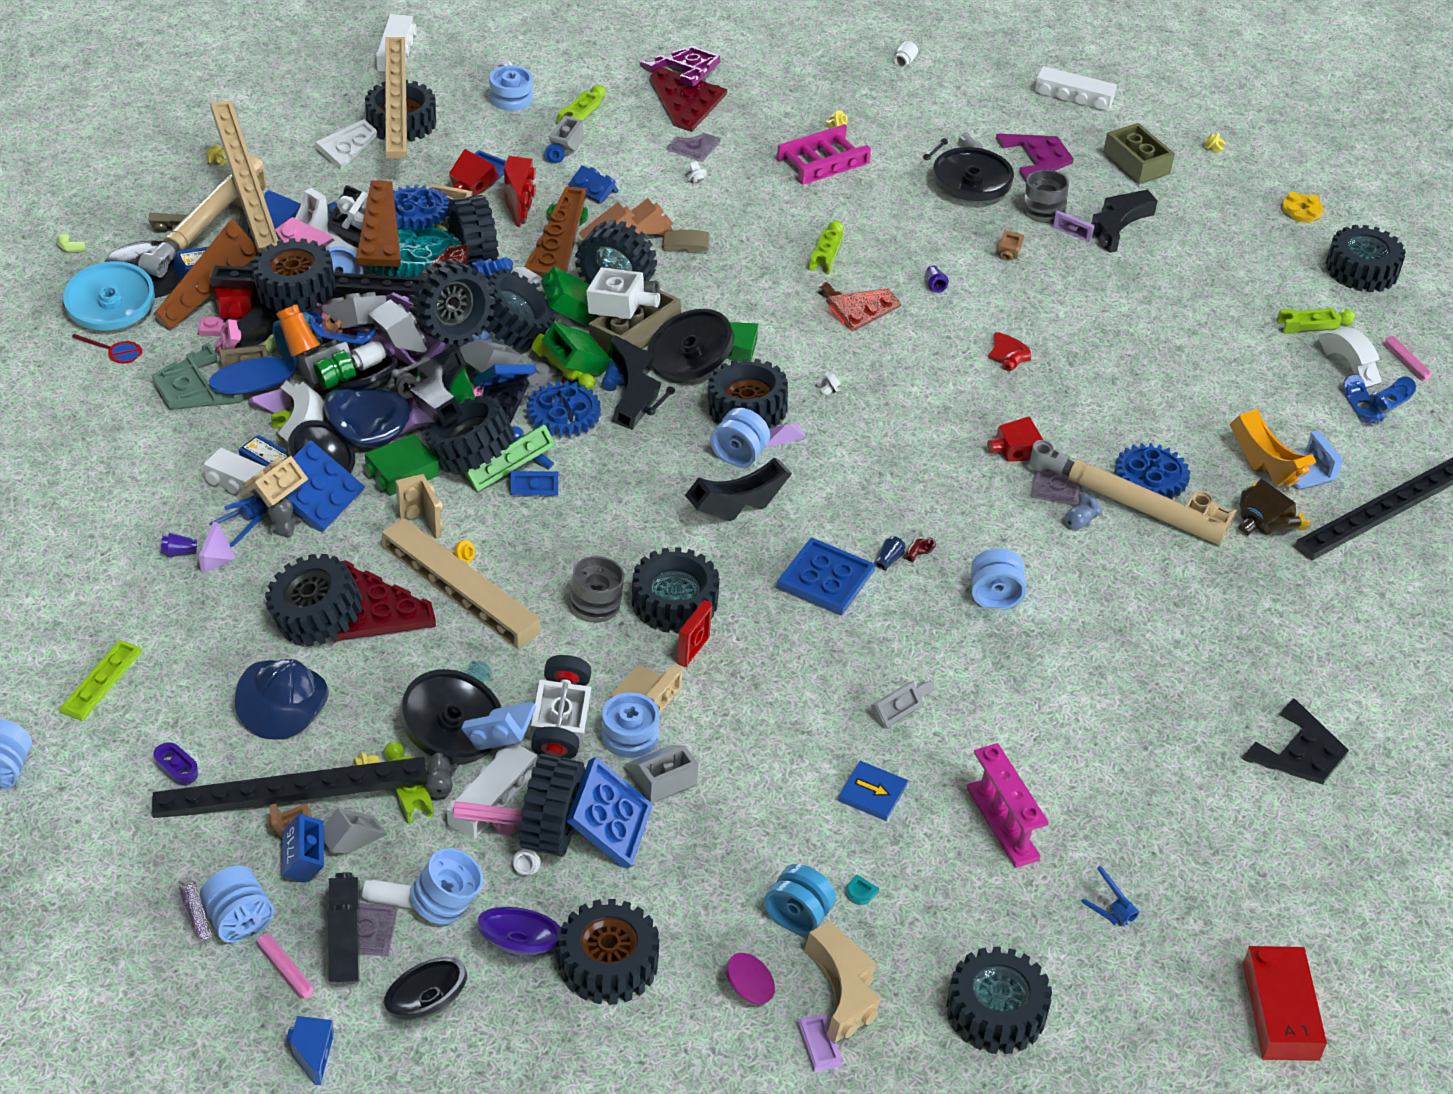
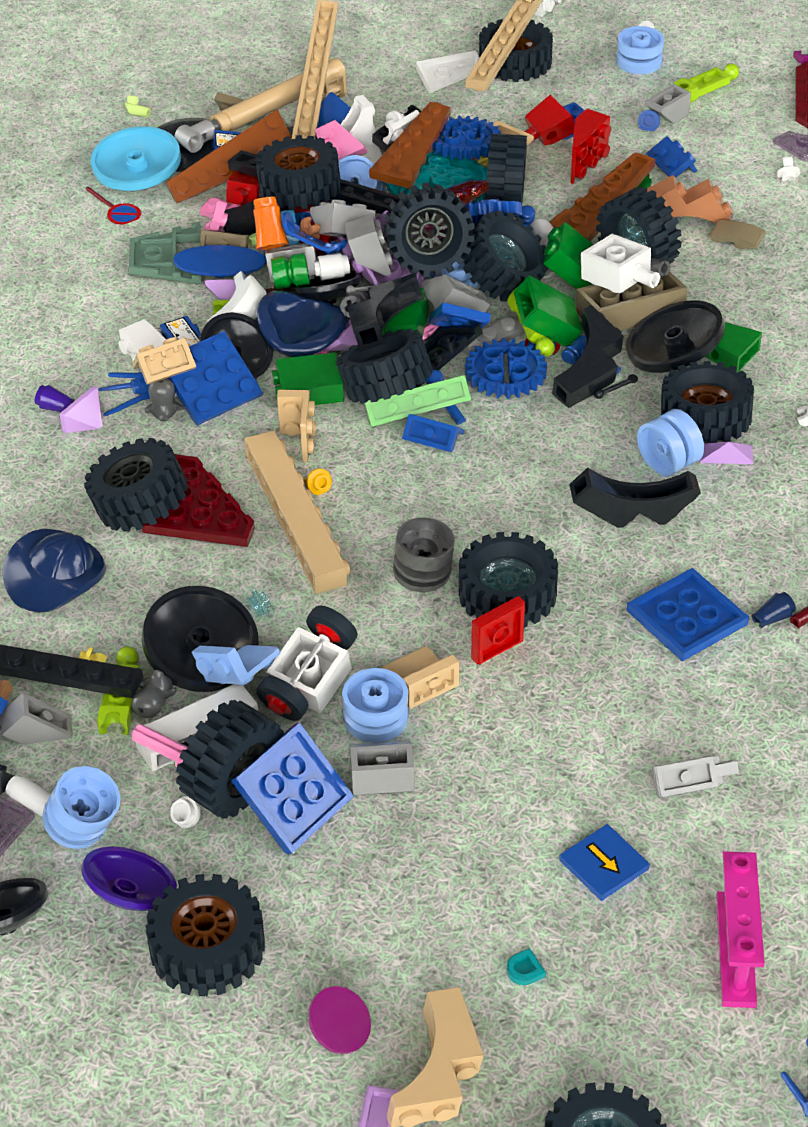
camera: 30 degrees right, 0 degrees up
(800, 899) = (439, 951): dark azure wheel -> none

